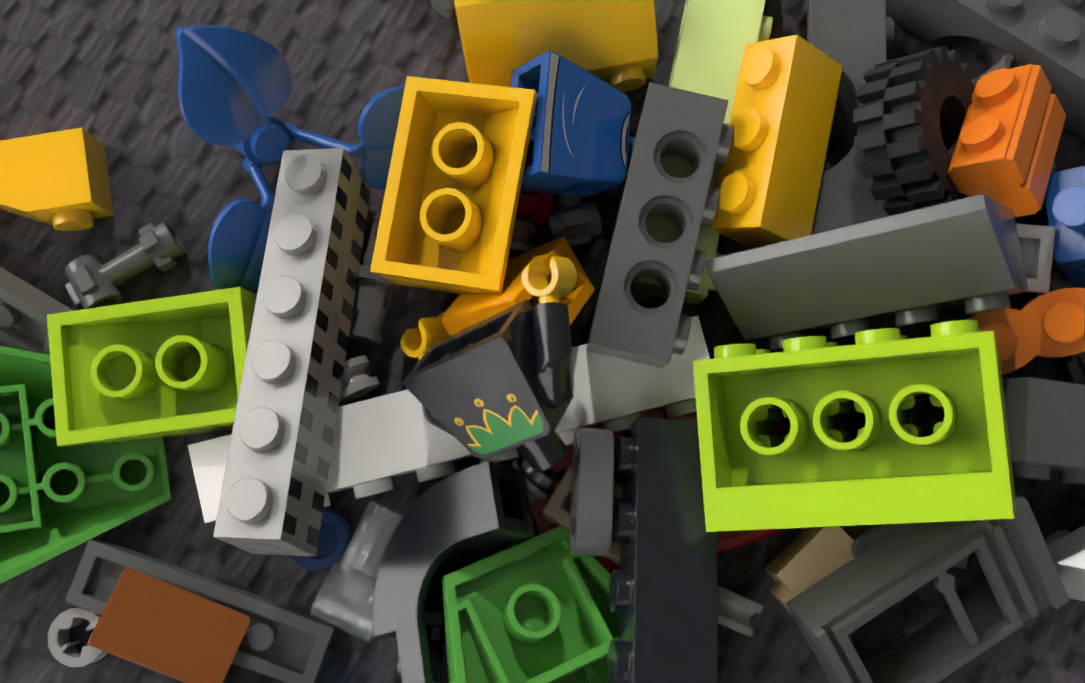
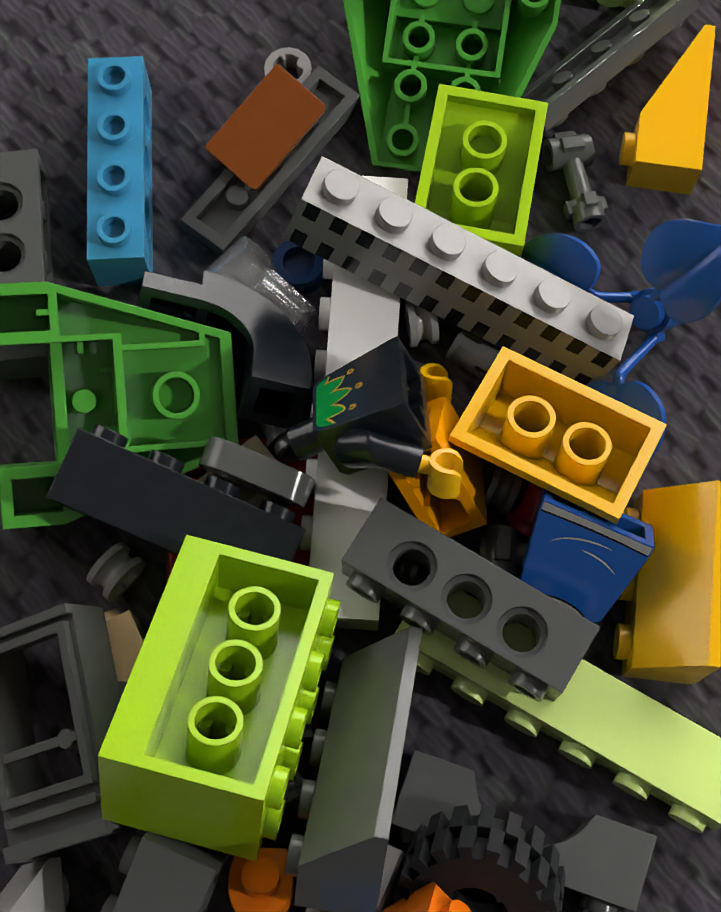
camera: 110 degrees right, 10 degrees down
(778, 142) = (514, 744): yellow brick -> none

